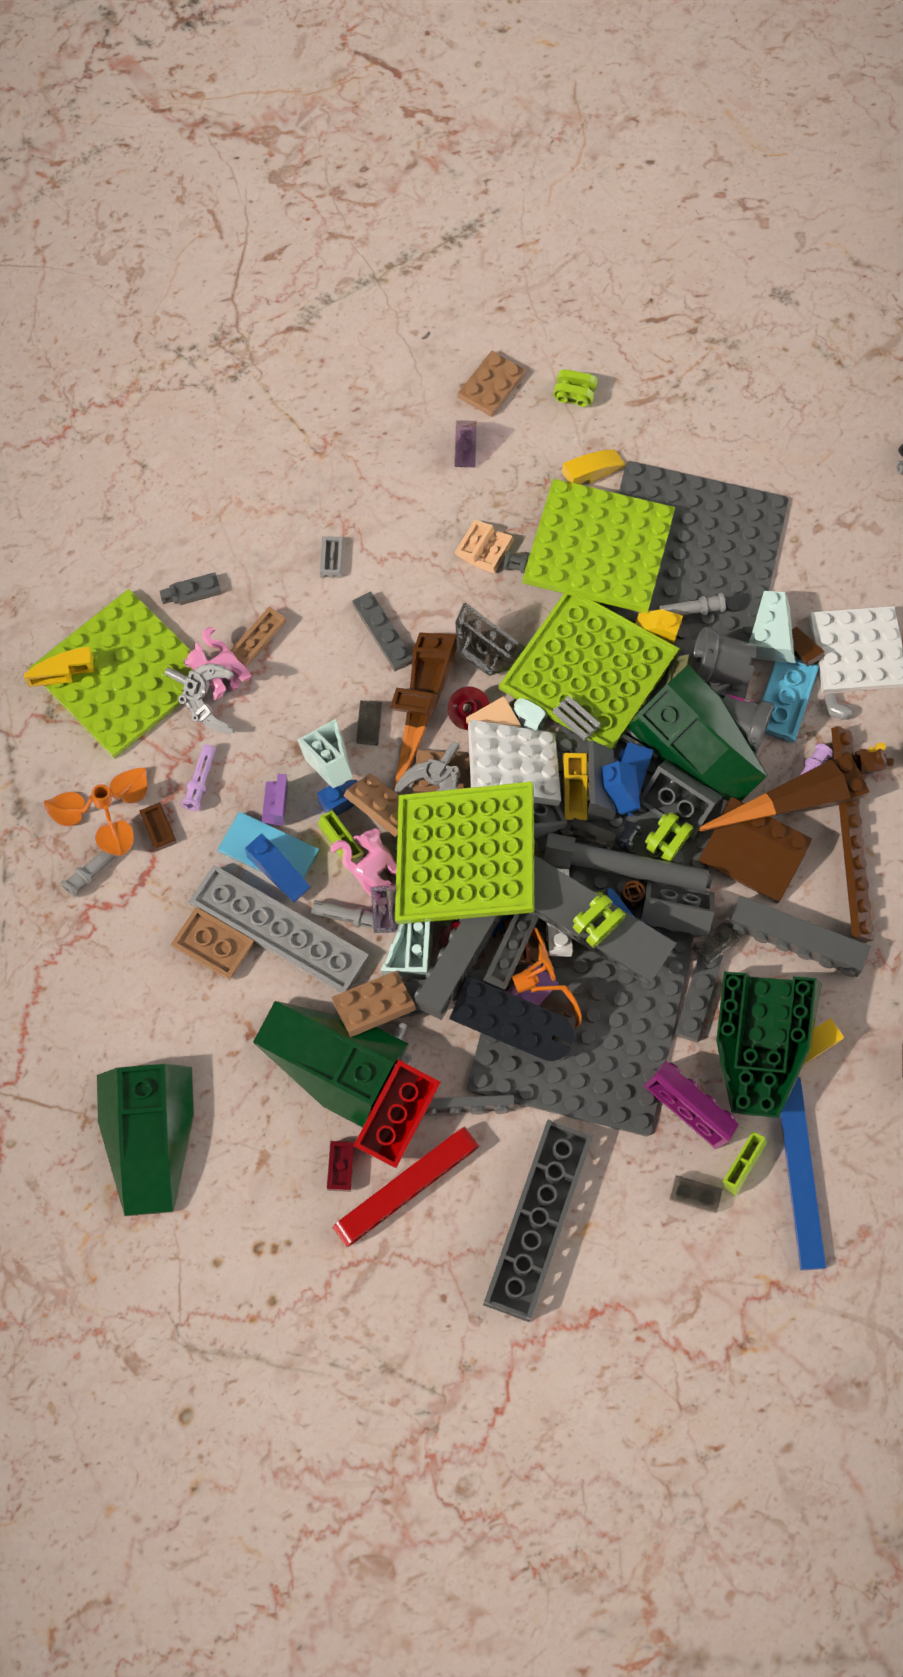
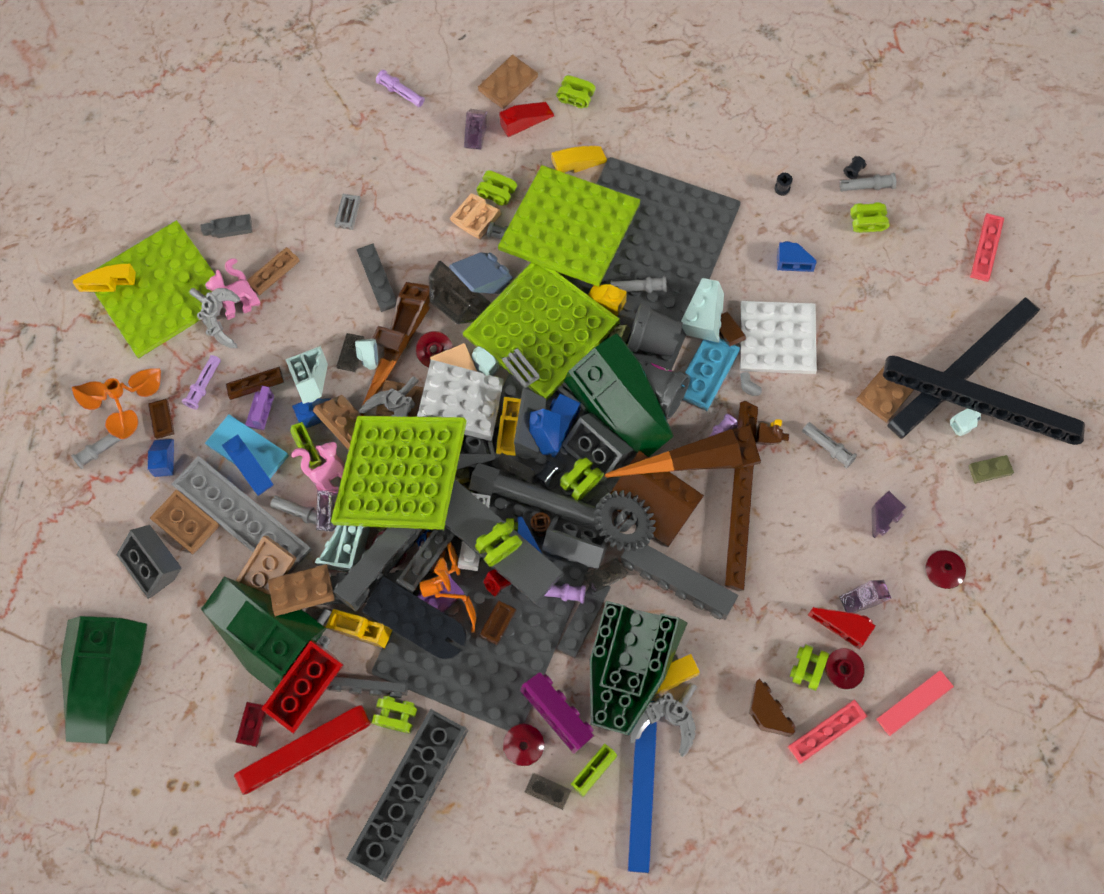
camera: 15 degrees right, 0 degrees up
(169, 872) = (161, 458): none -> blue slope
(179, 994) = (148, 560): none -> dark grey slope
(262, 771) = (254, 383): none -> reddish brown tile
(323, 979) = (265, 563): none -> medium nougat plate
(357, 400) = (394, 85): none -> lavender pin
(390, 720) = (367, 352): none -> light aqua rock
(444, 1040) = (359, 628): none -> yellow slope
(504, 510) = (496, 188): none -> lime brick
(511, 612) = (482, 273): none -> sand blue slope
(516, 1124) = (388, 705): none -> lime brick
(519, 423) = (523, 117): none -> red slope
(594, 966) = (495, 582): none -> red bracket
(603, 1012) = (497, 622): none -> reddish brown tile
(646, 1143) = (523, 733): none -> dark red dish
(679, 968) = (567, 592): none -> lavender pin
(736, 871) = (637, 514): none -> dark grey gear
(823, 1088) = (674, 713): none -> light grey bar
(834, 472) = (783, 184): none -> black bush
(861, 556) = (794, 258): none -> blue slope

